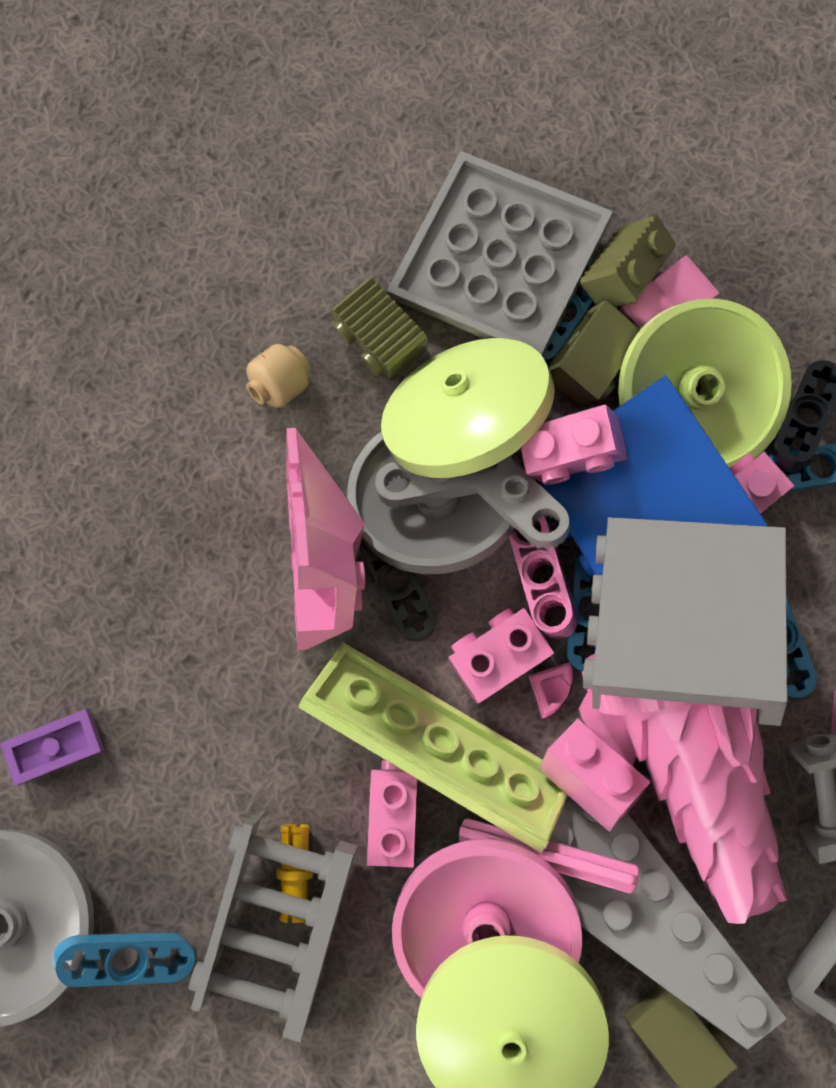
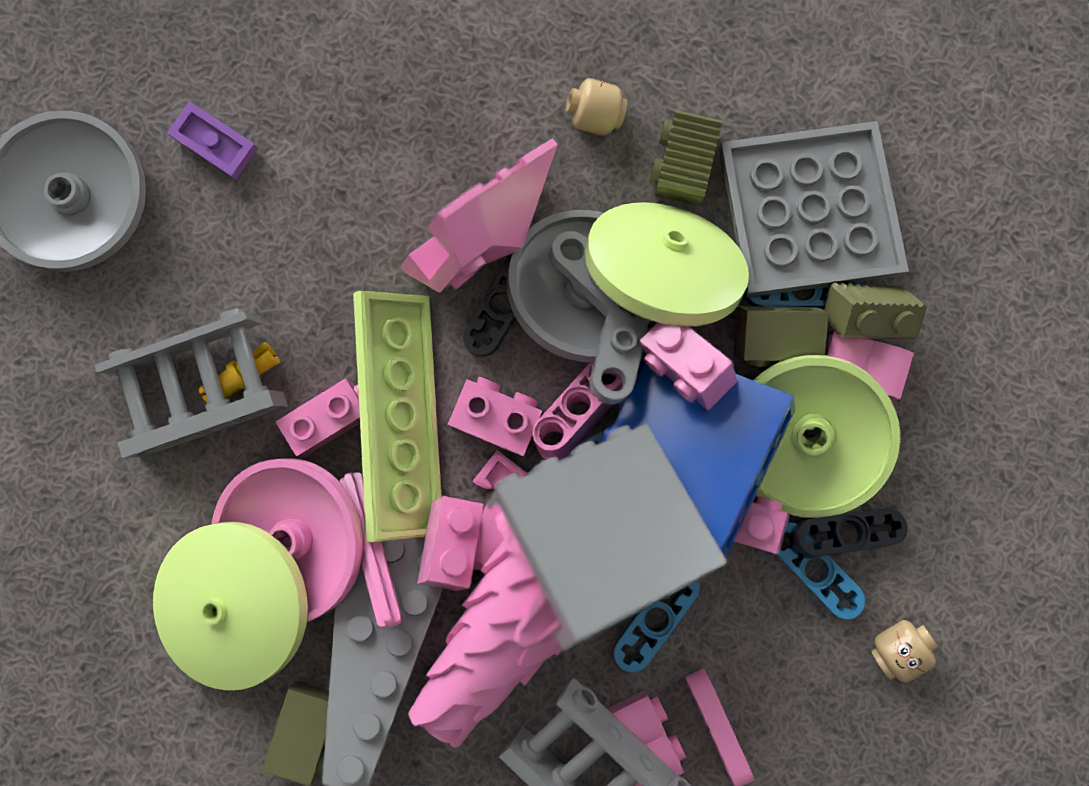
camera: 55 degrees right, 5 degrees up
(88, 973) = (90, 263): dark azure beam -> none

